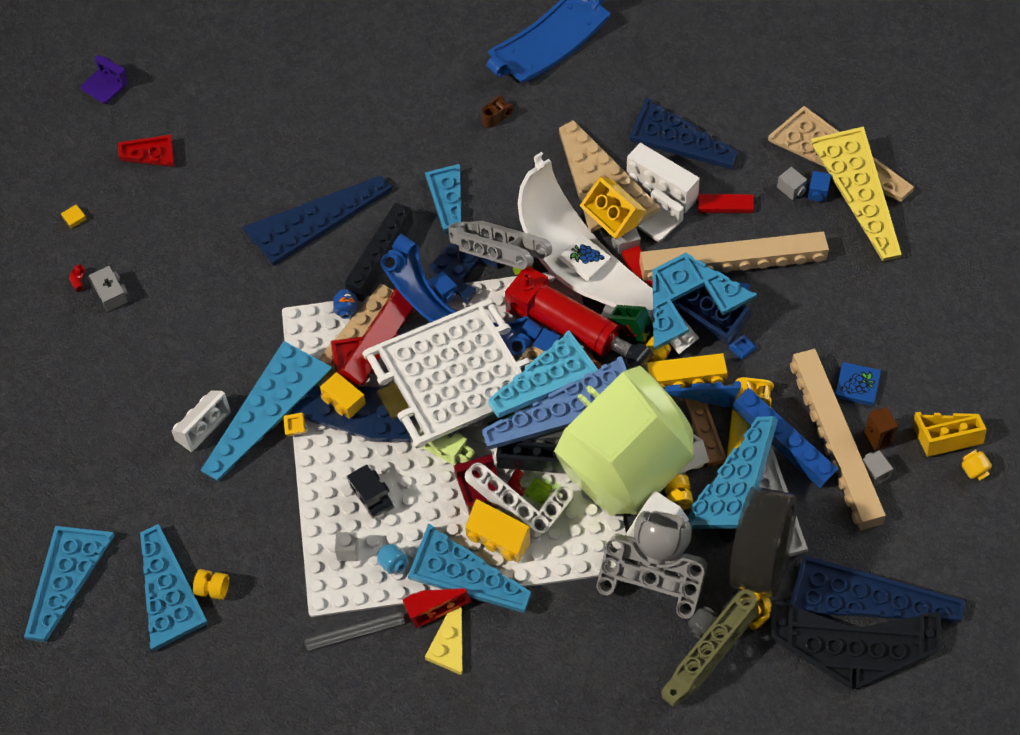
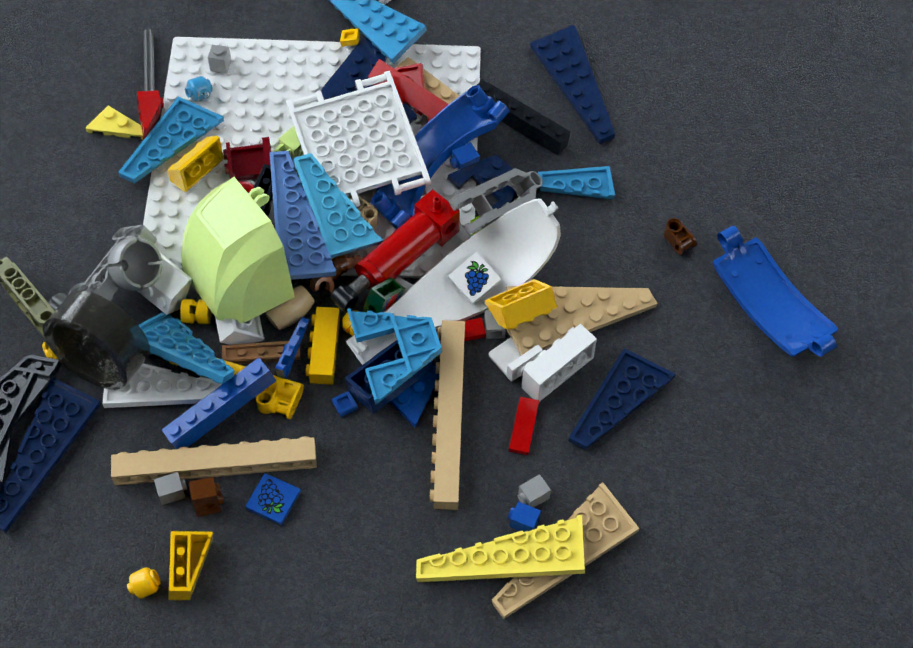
camera: 95 degrees right, 0 degrees up
(342, 395) = (360, 64): yellow brick -> none
(345, 304) = (463, 82): blue head -> none
(370, 490) = (266, 79): black hinge -> none
(517, 502) = (210, 170): white beam -> none
(546, 339) = (382, 226): blue brick -> none

